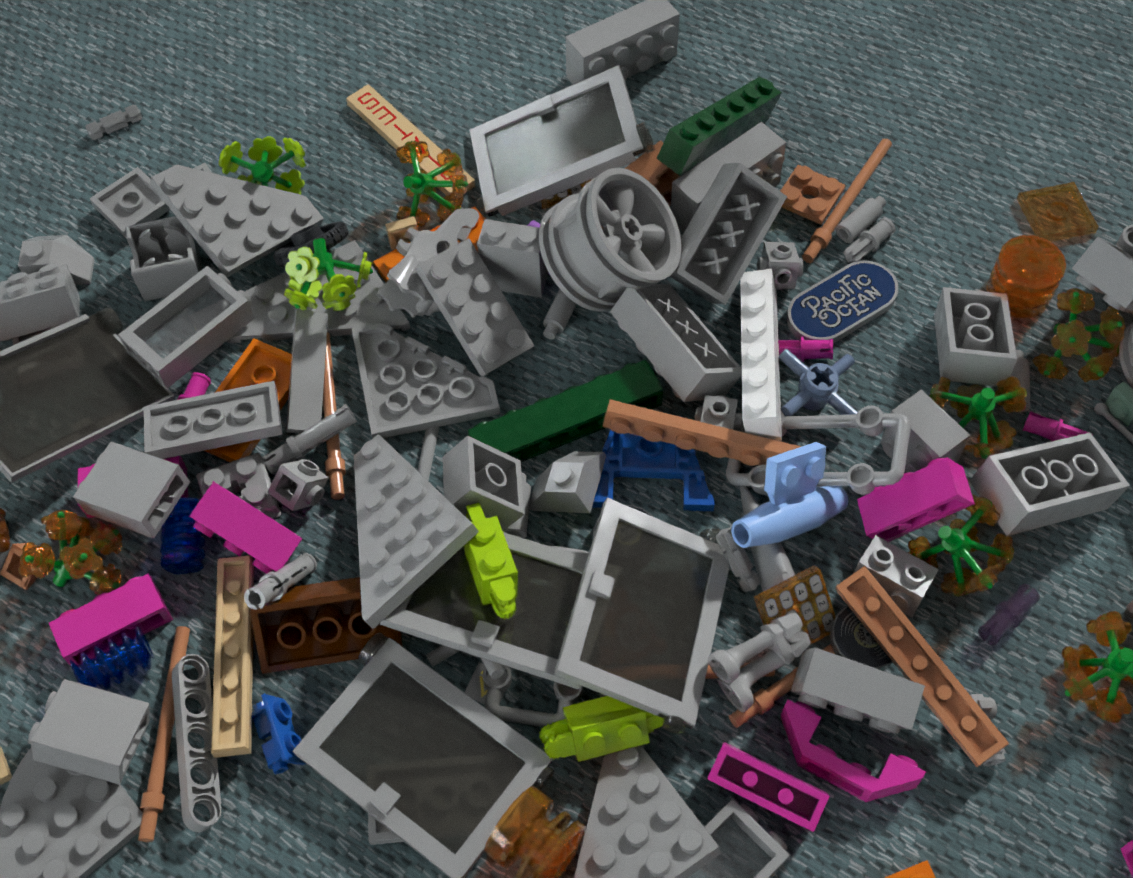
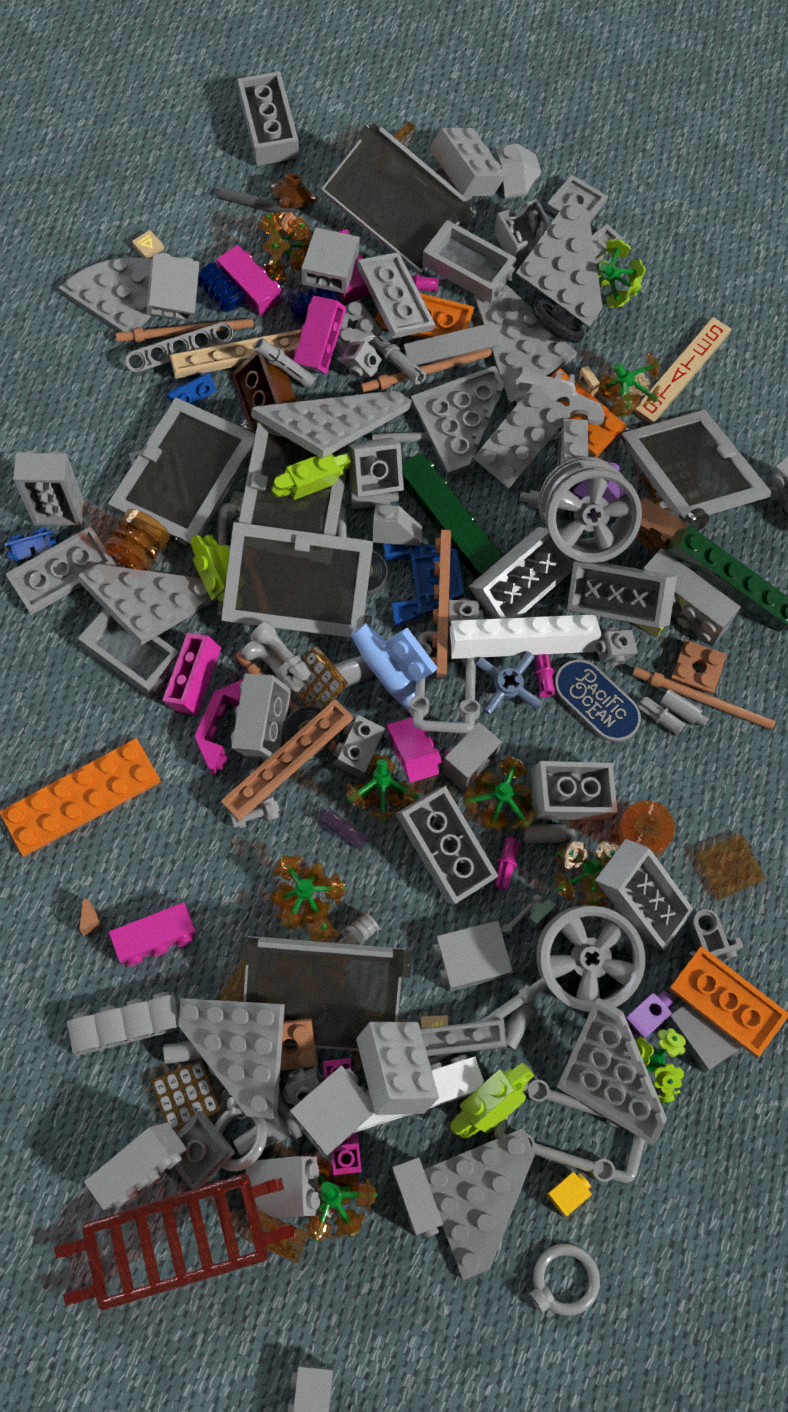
camera: 75 degrees right, 10 degrees up
(113, 122) = (650, 171): light grey axle -> none
(304, 271) = (522, 326): lime plant -> none
(738, 561) = (348, 644): light grey axle -> none

